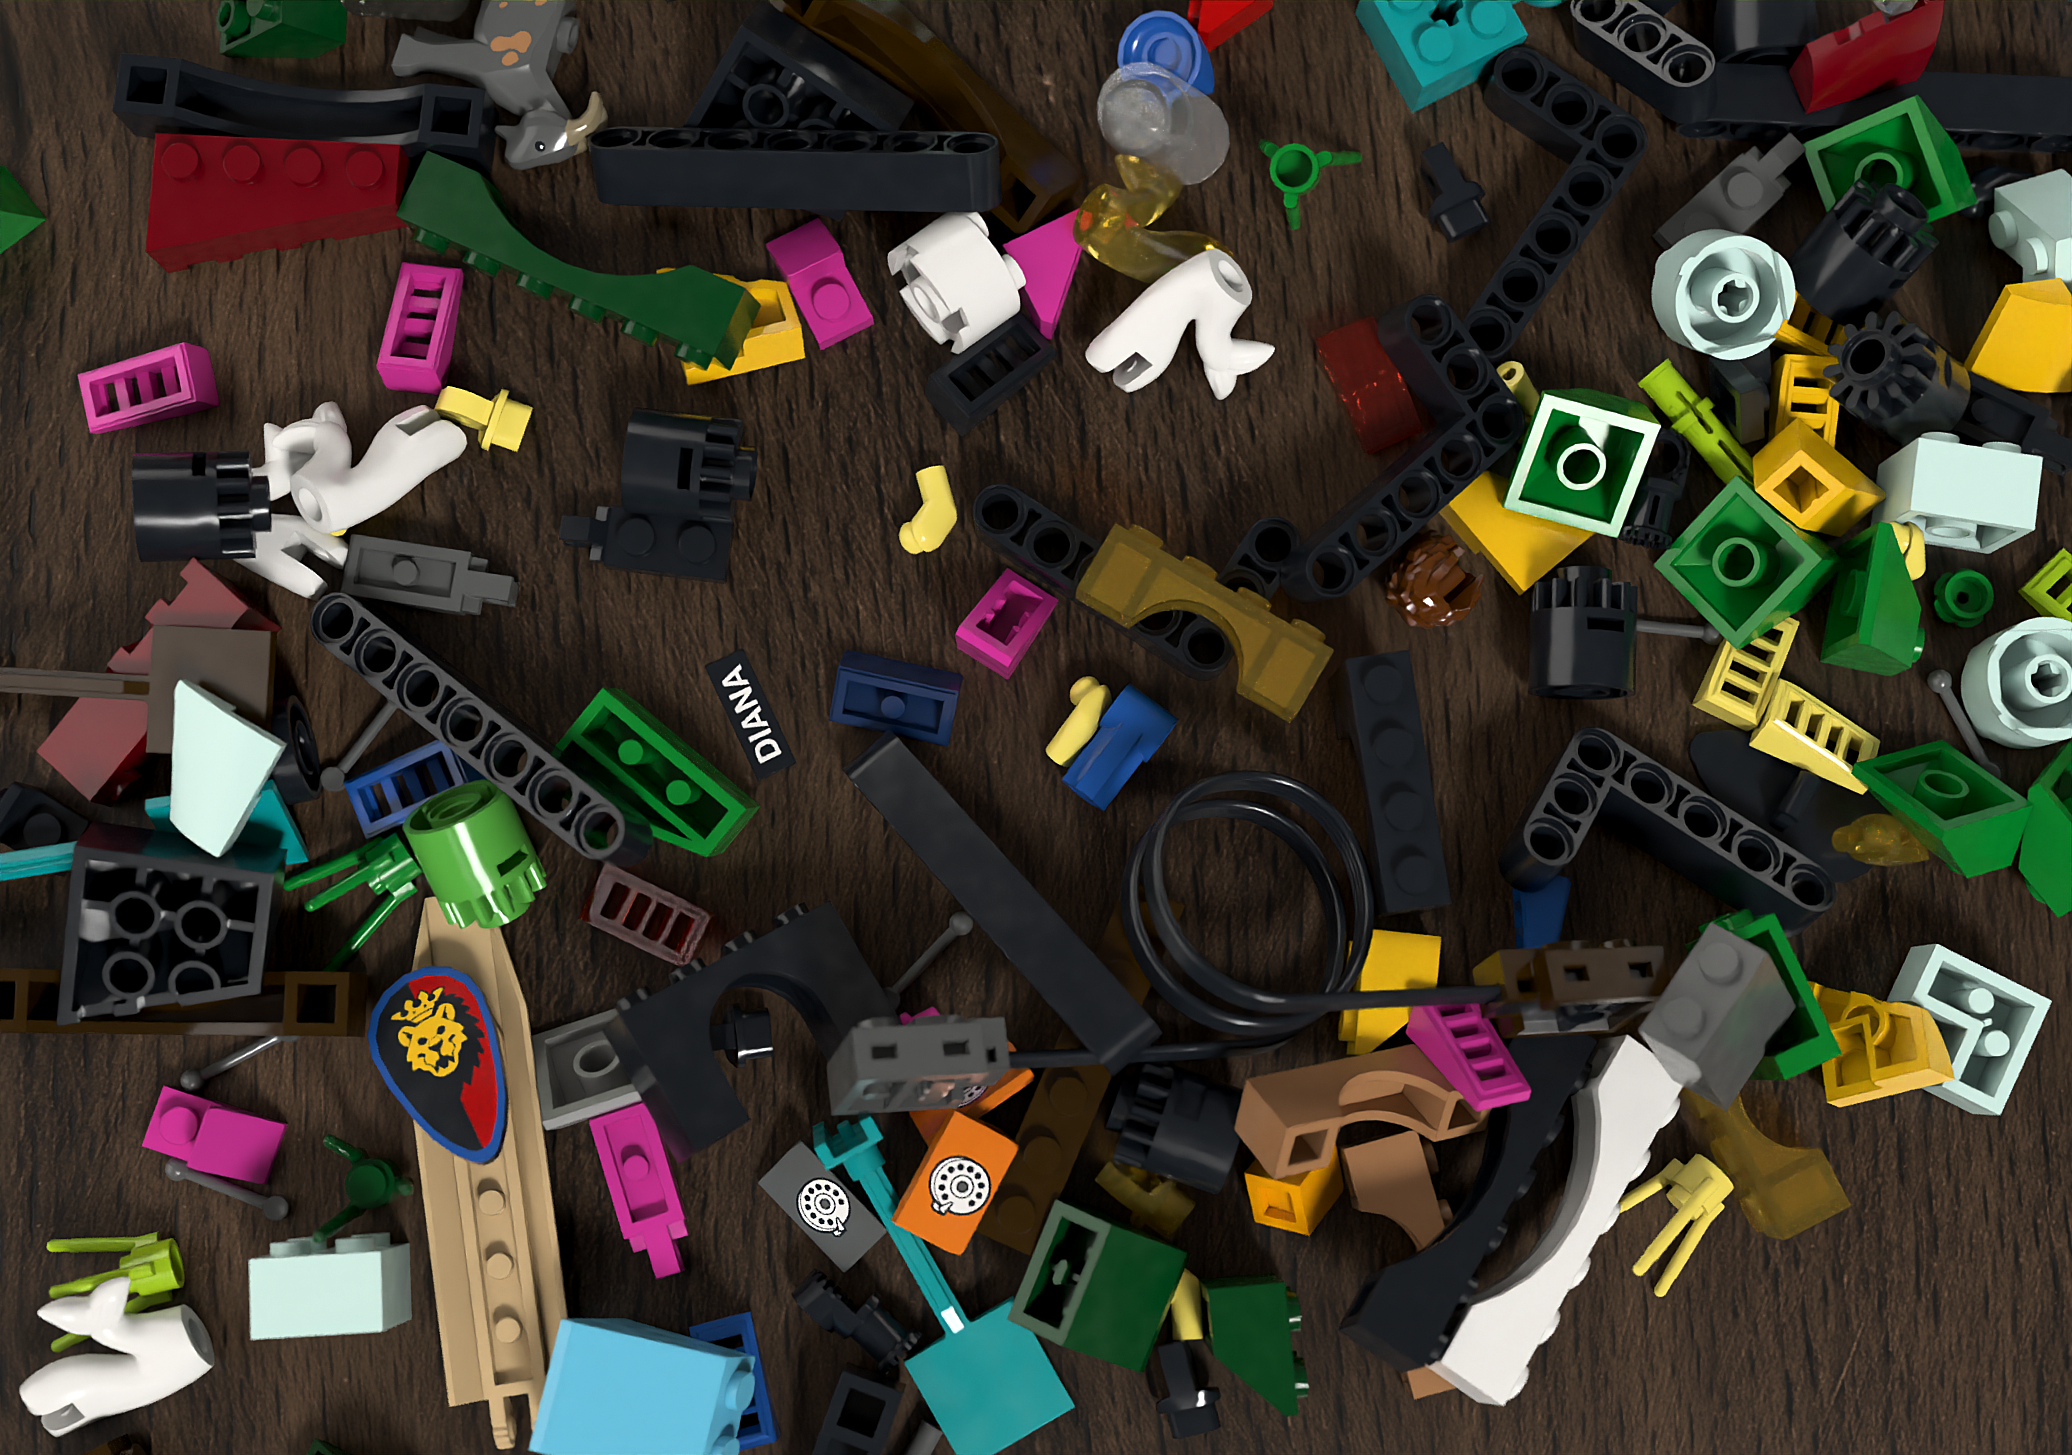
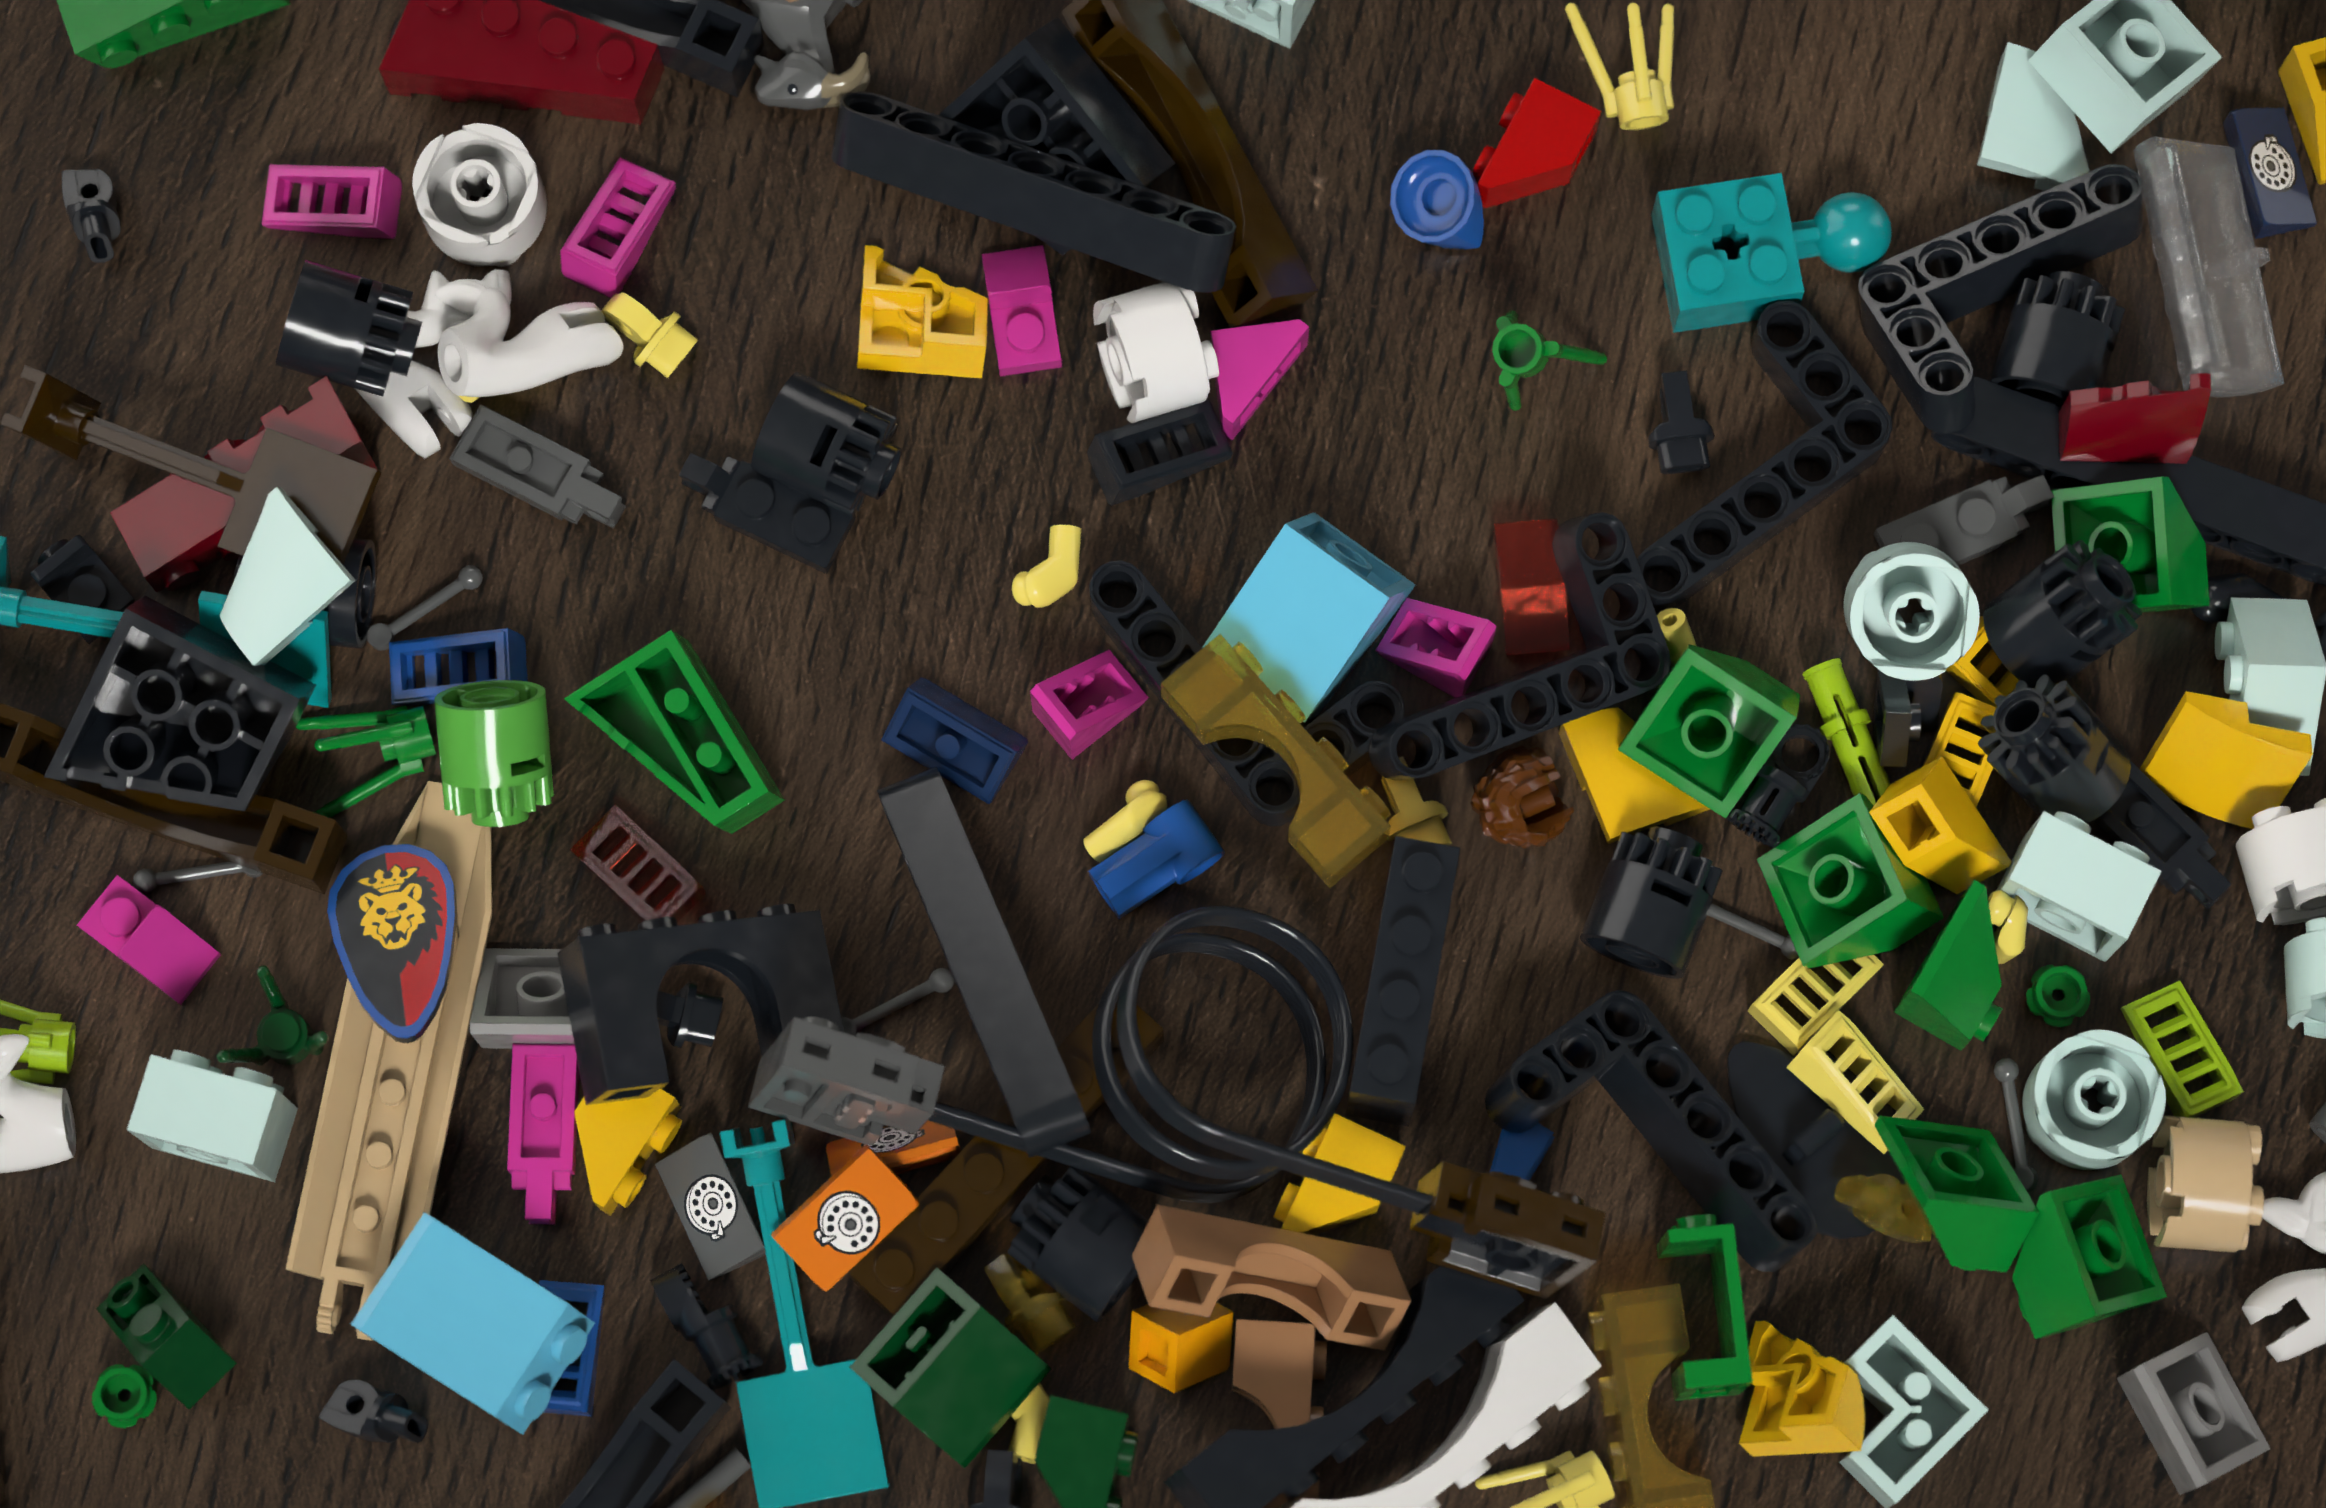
camera: 25 degrees right, 5 degrees down
(261, 313) = (467, 164): none -> white brick
(274, 1208) = (181, 1029): dark grey hinge -> none
(502, 737) = (552, 650): black beam -> none
(681, 307) = (875, 290): dark green arch -> none
(718, 1181) = (619, 1140): none -> yellow slope
(750, 714) = (806, 709): black sticker -> none
(1113, 223) = (1381, 403): clear yellow piece -> none
(1149, 331) = (1327, 460): white piece -> none
(1163, 122) = (1415, 263): clear piece -> none
(1182, 472) = (1312, 610): none -> medium azure slope
(1305, 465) = (1438, 644): none -> dark pink slope
(1343, 631) = (1413, 816): none -> light yellow piece
(1454, 1035) = (1388, 1254): dark pink slope -> none
(1718, 1016) = (1638, 1302): dark grey brick -> none

